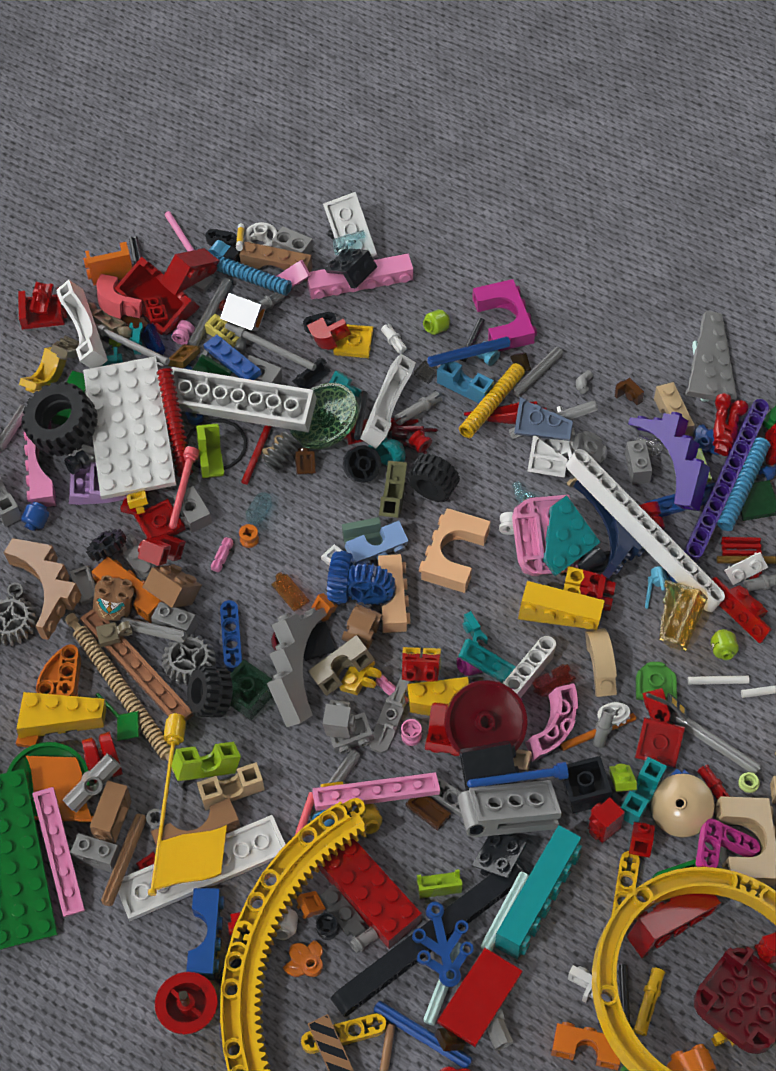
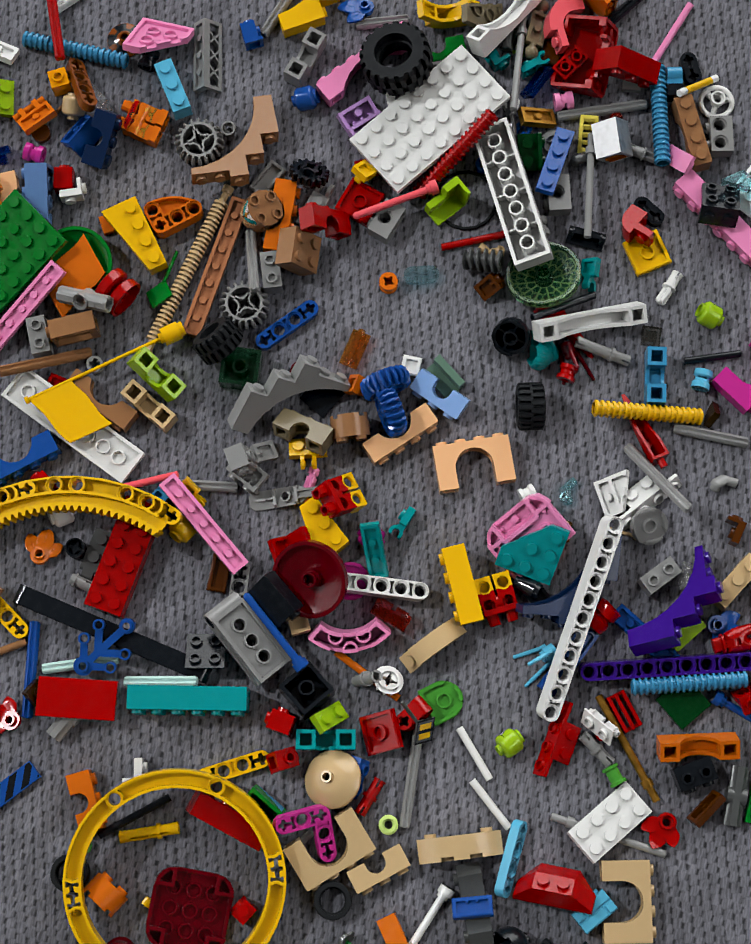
camera: 60 degrees right, 20 degrees up
(77, 462) = (370, 99): black wheel -> none
(110, 633) = (230, 229): dark tan plate -> none
(222, 554) = (360, 271): bright pink axle -> none
(310, 904) = (86, 525): orange tile -> none
(394, 491) = (491, 383): olive arch -> none
(411, 727) = (278, 518): bright pink wheel -> none
(439, 884) = (159, 615): lime hinge -> none
(468, 351) = (684, 363): blue axle -> none
(538, 422) = (643, 467): sand blue wing -> none
(681, 614) = (513, 692): clear yellow wedge -> none

